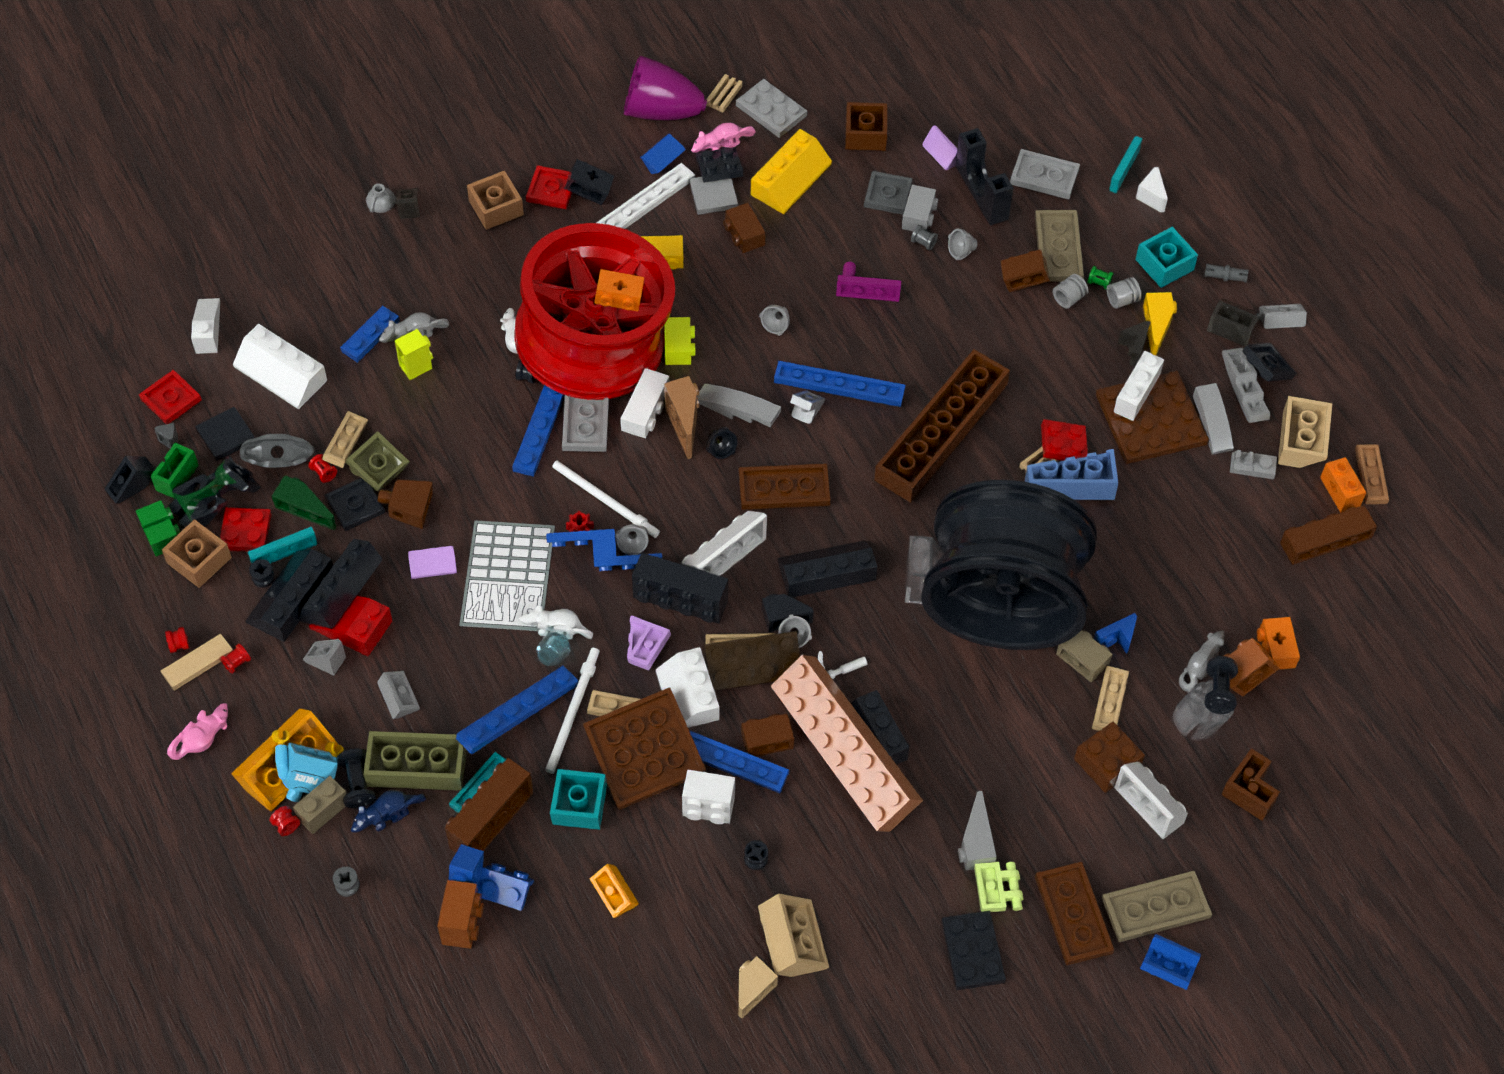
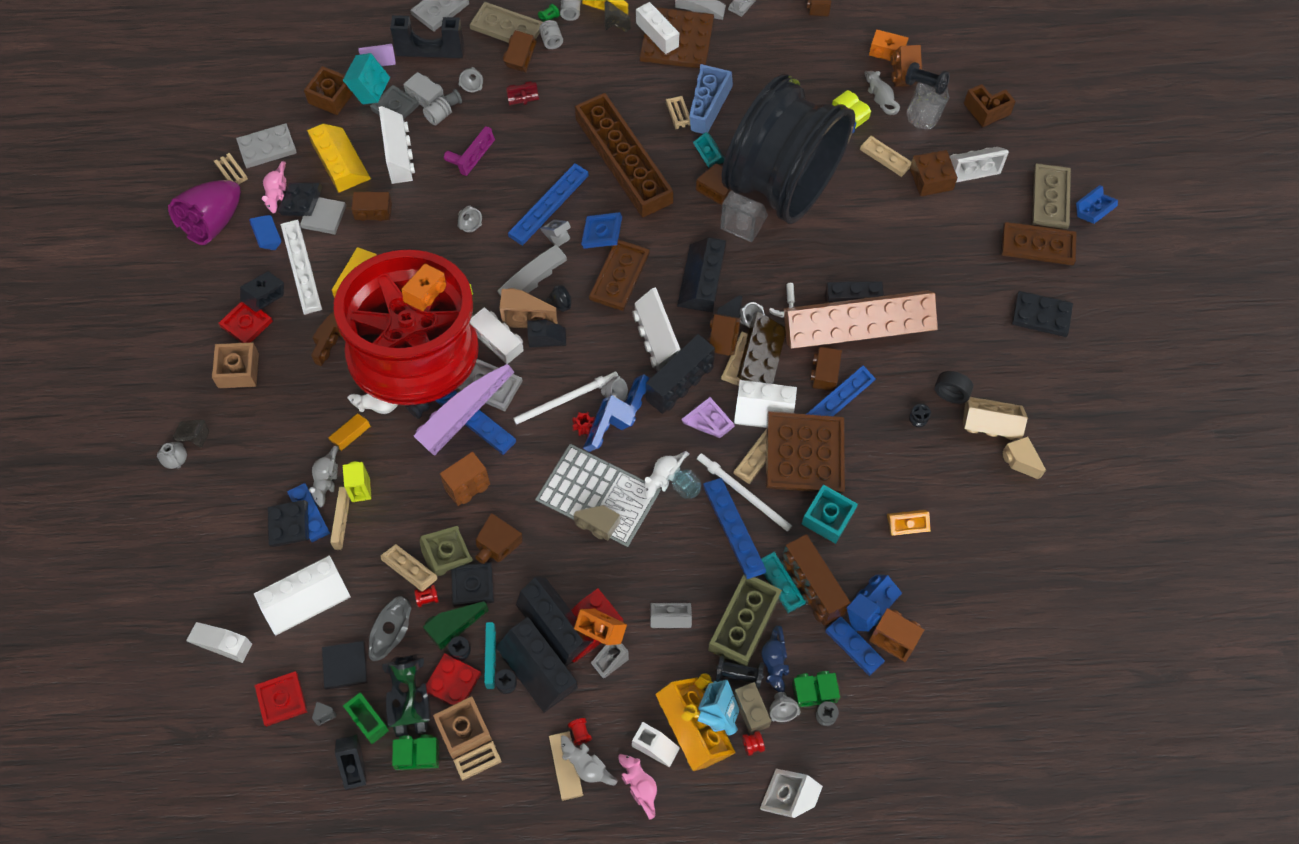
camera: 65 degrees left, 5 degrees up
(177, 640) = (538, 774): red wheel -> none
(186, 595) = (457, 761): none -> tan tile
(199, 678) = (587, 767): none -> light grey animal
(242, 877) = (791, 794): none -> white slope
(245, 727) = (655, 744): none -> white slope
(284, 523) = (461, 652): none -> black wheel
(334, 835) = (783, 708): none -> light grey piece
(338, 619) = (600, 626): none -> orange brick
(348, 321) = (288, 523): none -> black plate
(368, 860) = (815, 689): none -> green piece
(369, 362) = (340, 519): none -> tan tile
(432, 562) = (562, 544): lavender slope -> none
(432, 892) = (855, 646): none -> blue plate
(459, 443) = (465, 479): none -> dark orange brick
(471, 584) = (598, 520): none -> dark tan slope
(472, 328) = (349, 431): none -> light orange slope
(535, 405) = (459, 409): none -> lavender slope
(671, 446) = (545, 334): none -> black slope
(708, 797) = (867, 424): white brick -> none
(749, 610) = (724, 333): none -> reddish brown brick
(805, 874) = (945, 387): none -> black tyre
(829, 212) = (396, 146): none -> white slope
(829, 445) = (601, 230): none -> blue plate
(896, 149) = (366, 78): none -> teal brick
(899, 231) = (437, 110): none -> light grey piece
(971, 298) = (522, 93): none -> dark red hips
(977, 841) = (962, 274): light grey slope -> none
(990, 886) = (1001, 282): yellowish green plate -> none
(1063, 440) = (673, 92): red plate -> none
(1085, 655) = (855, 154): dark tan brick -> none
(1153, 635) = (850, 100): none -> neon yellow brick

